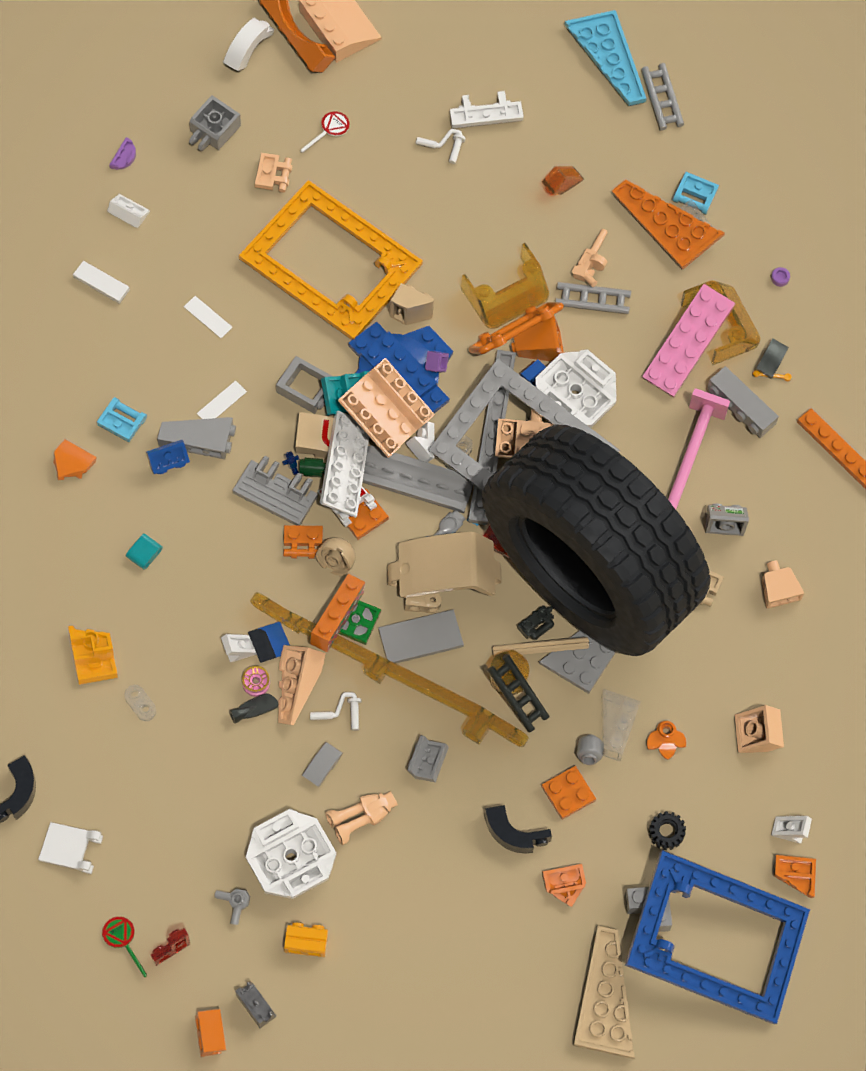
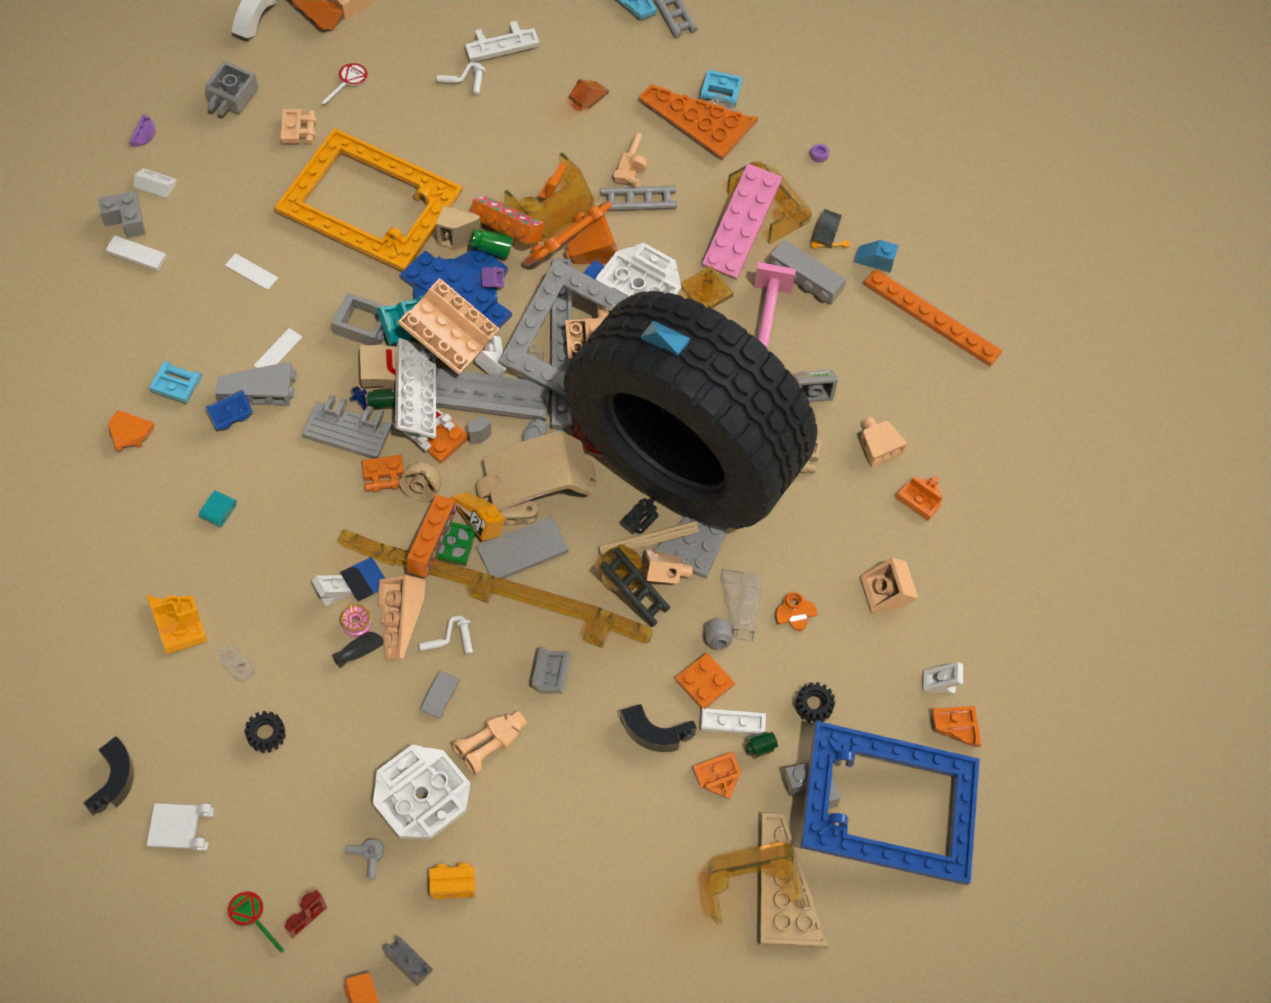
camera: 10 degrees left, 5 degrees down
(96, 236) = (123, 209): none -> light grey brick
(163, 783) = (271, 742): none -> black tyre
(386, 598) = (480, 514): none -> light orange slope
(399, 513) = (479, 430): none -> light grey piece
(442, 325) = (491, 242): none -> green plant
(460, 304) = (507, 220): none -> orange brick
(510, 272) = (552, 183): none -> orange slope
(550, 678) = (665, 567): none -> light nougat torso
(577, 481) = (665, 338): none -> dark azure slope
(587, 835) = (732, 721): none -> white tile
(603, 969) = (778, 857): none -> clear yellow windscreen
(609, 861) = (761, 744): none -> dark green brick
(641, 404) = (707, 288): none -> clear yellow plate
(809, 646) = (921, 496): none -> orange slope
(815, 394) = (877, 255): none -> dark azure slope

